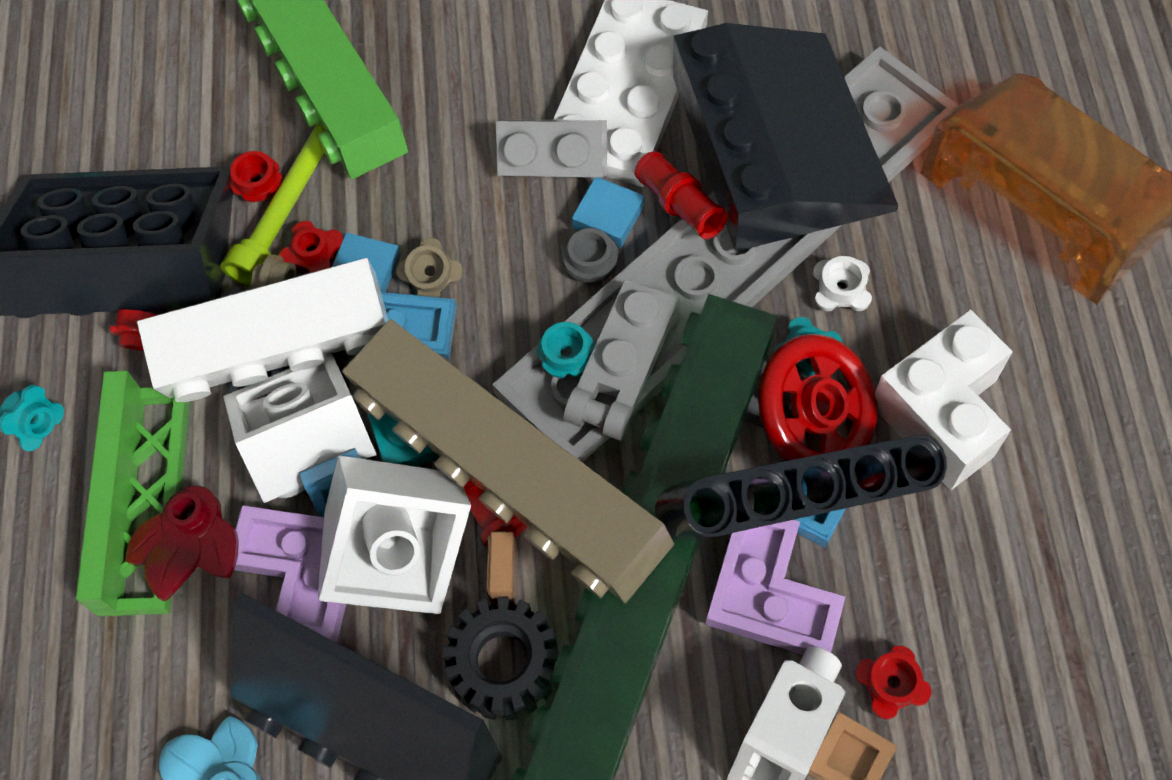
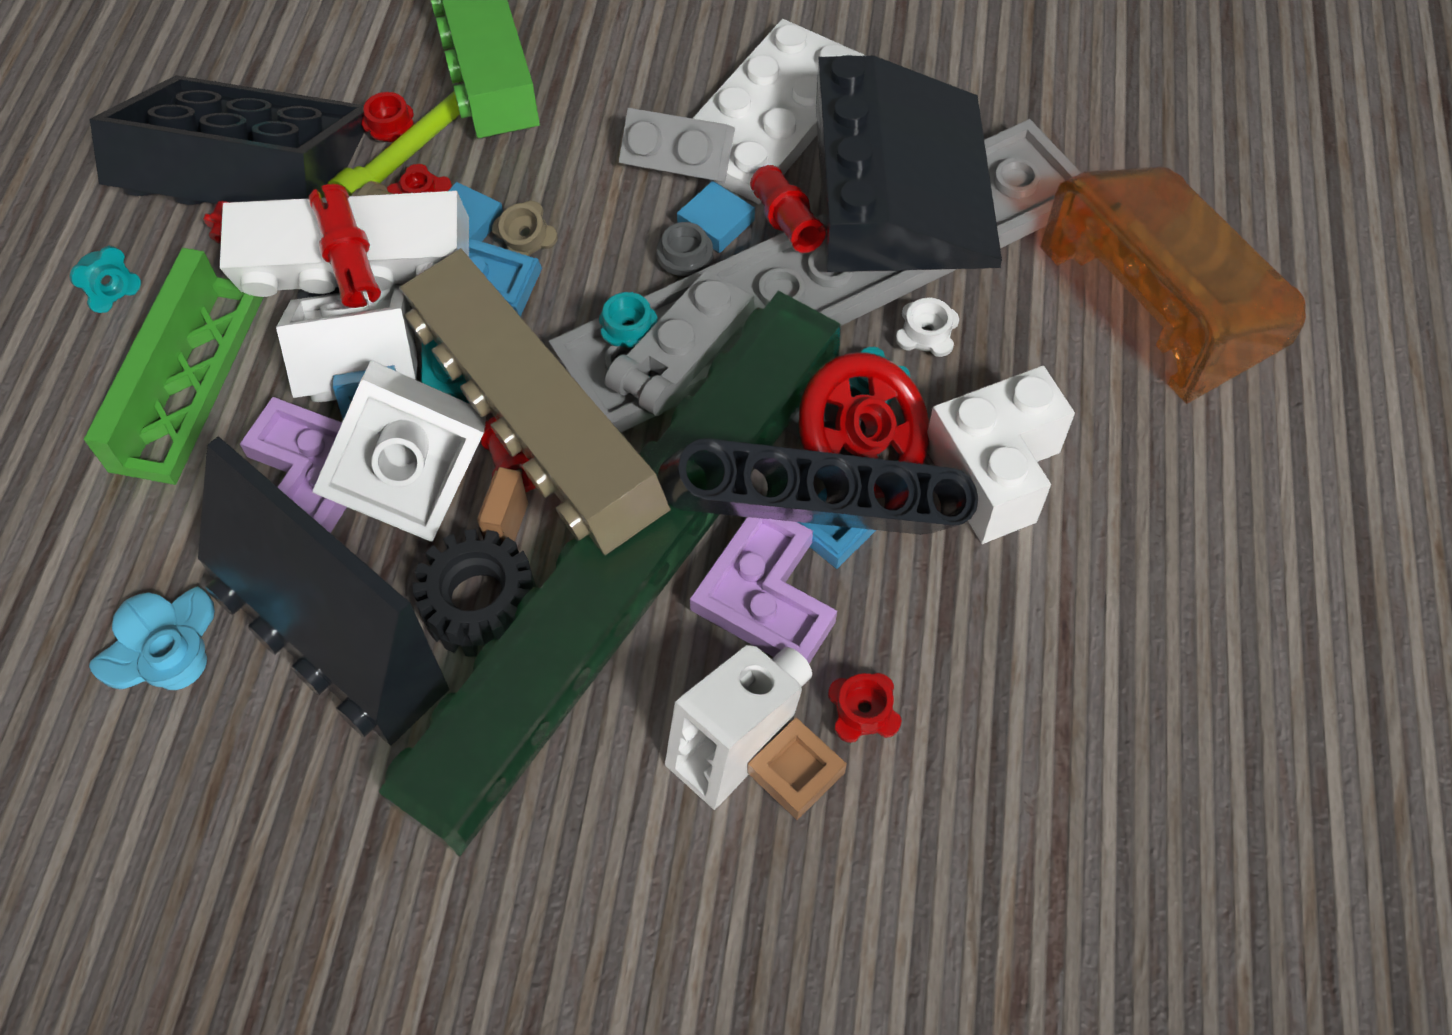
camera: 10 degrees right, 5 degrees down
(177, 546) = (215, 408): dark red plate -> none
(276, 342) = (344, 246): none -> red pin

